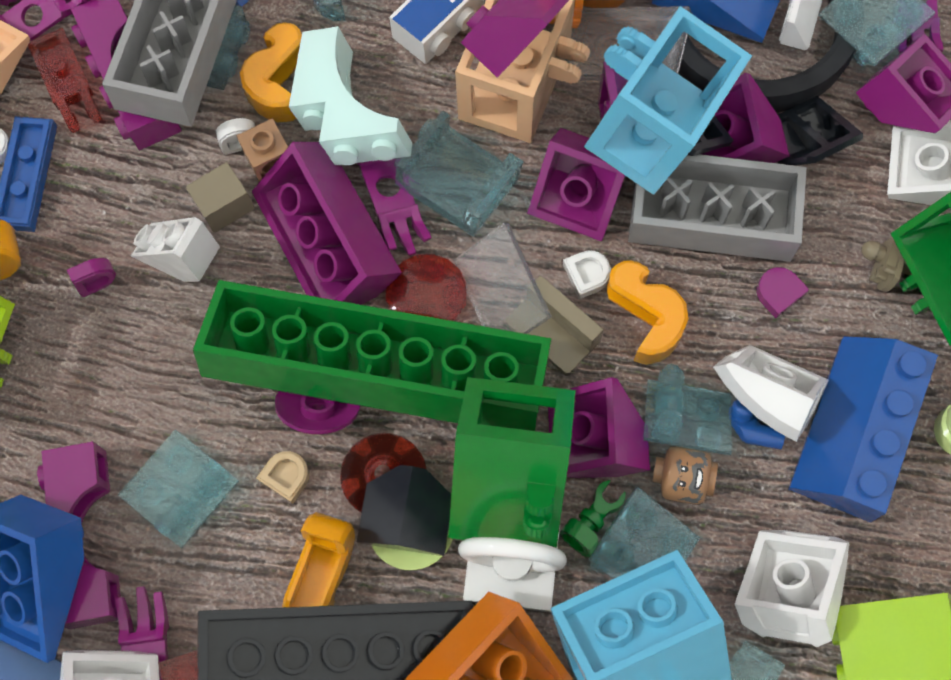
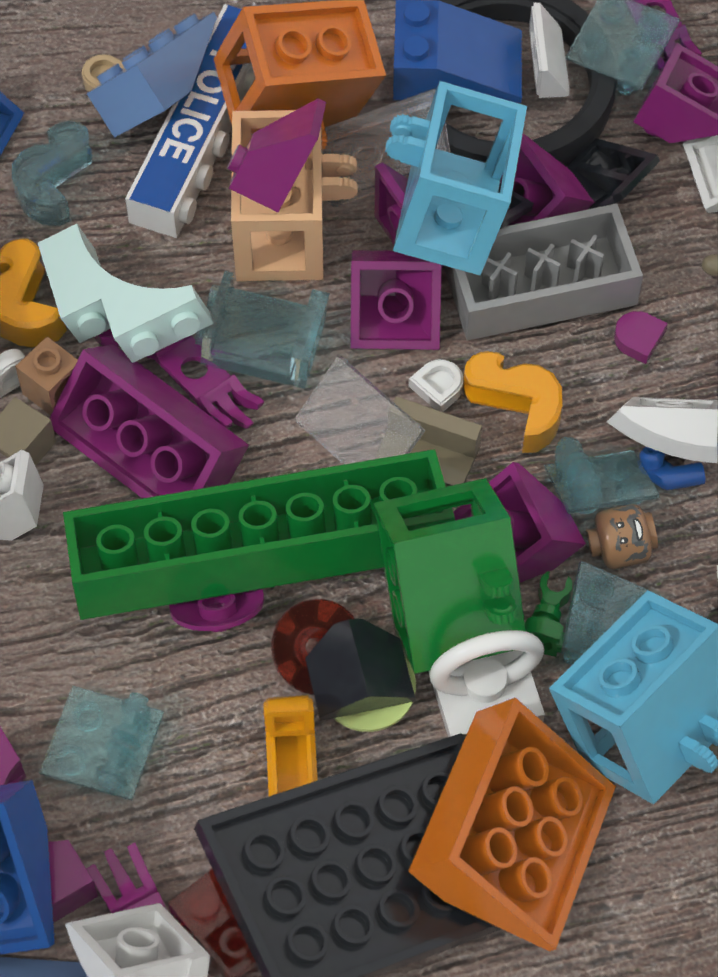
camera: 25 degrees left, 10 degrees down
(286, 475) = (211, 689): tan tile -> none
(428, 288) = (280, 449): clear red dish -> none

